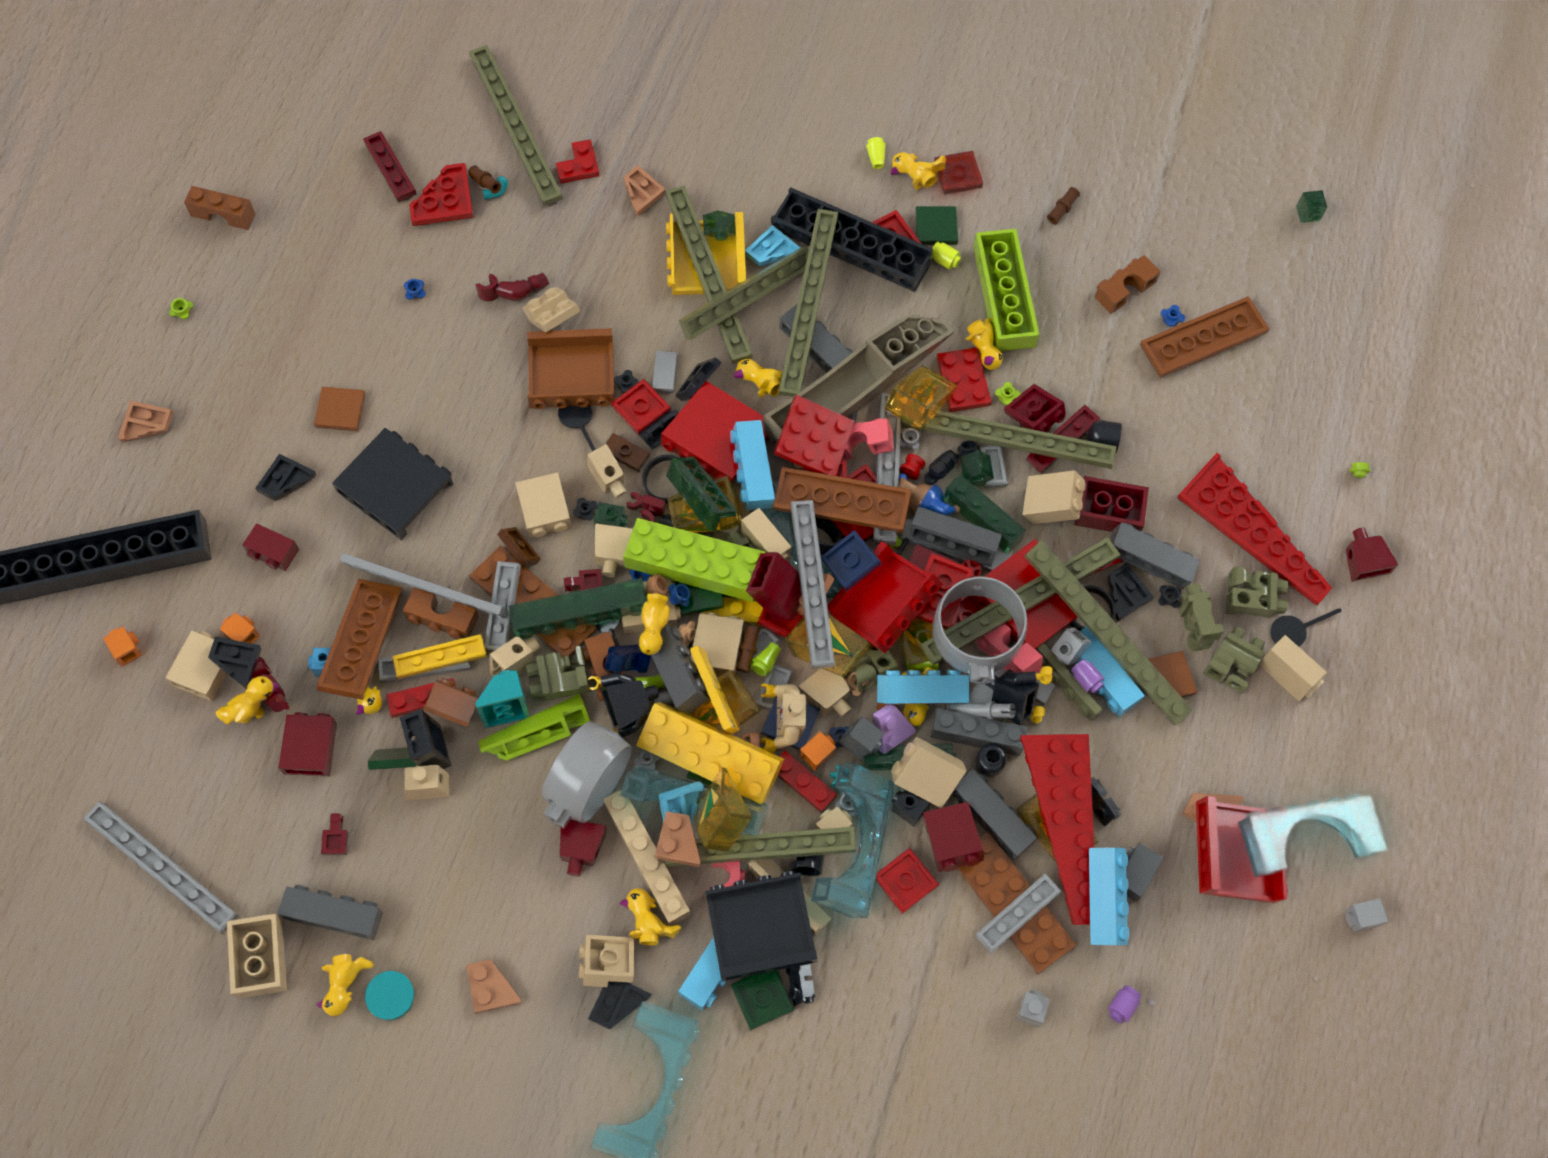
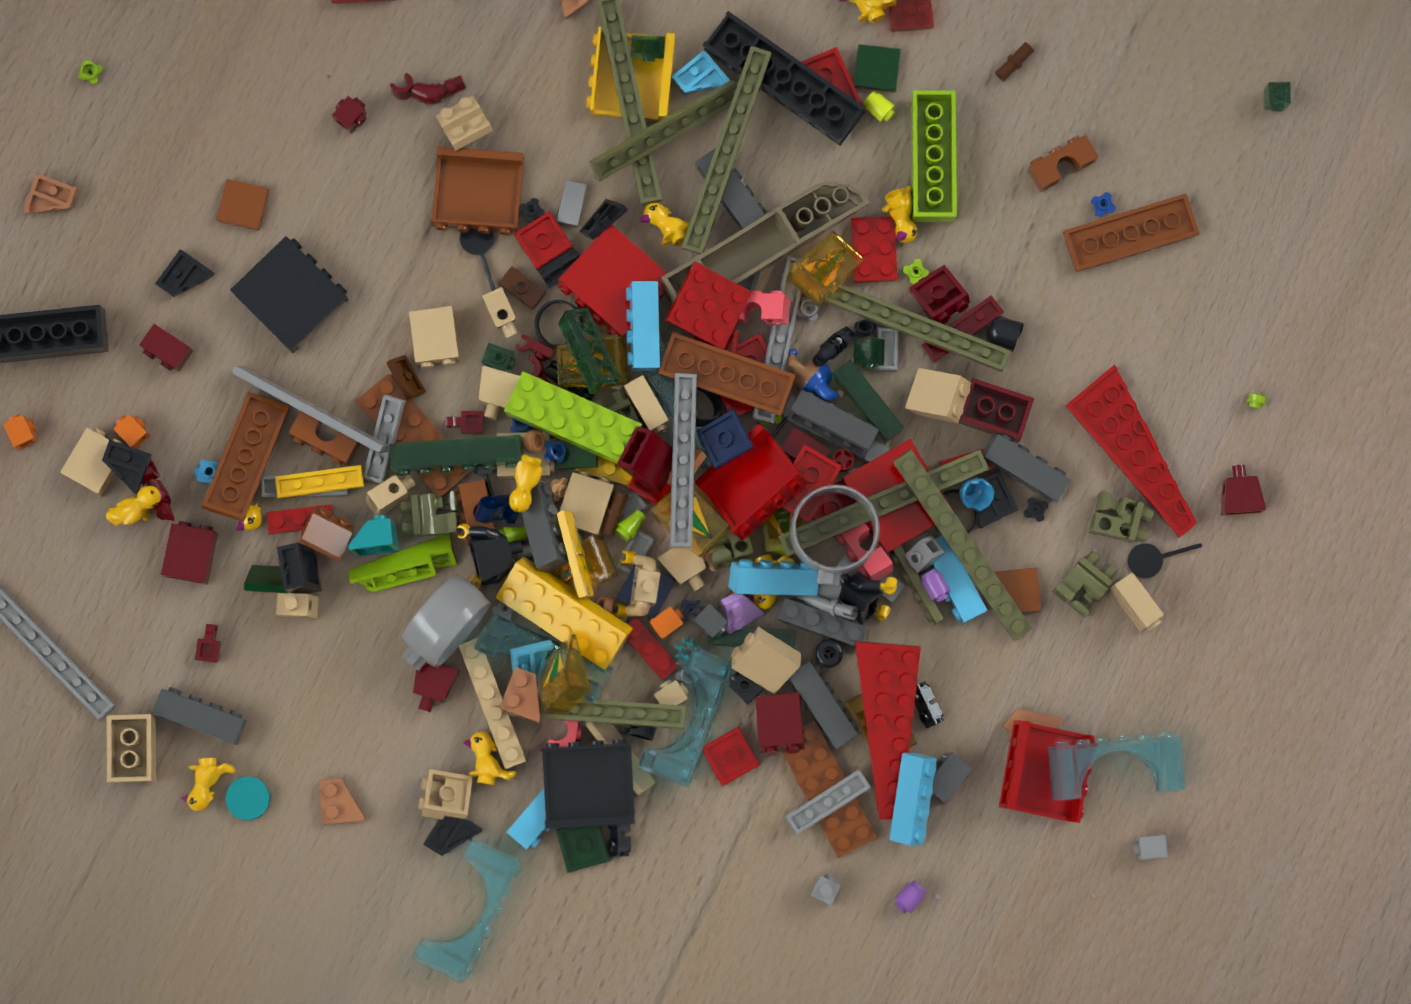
camera: 10 degrees right, 15 degrees up
(414, 284) = (323, 74): blue plate -> none
(438, 316) = (350, 113): none -> dark red brick
(585, 514) = (478, 350): black plate -> none
(912, 466) = (805, 341): red wheel -> none
(1110, 583) = (976, 493): none -> dark azure hair
(1198, 618) = (1055, 538): olive hips -> none

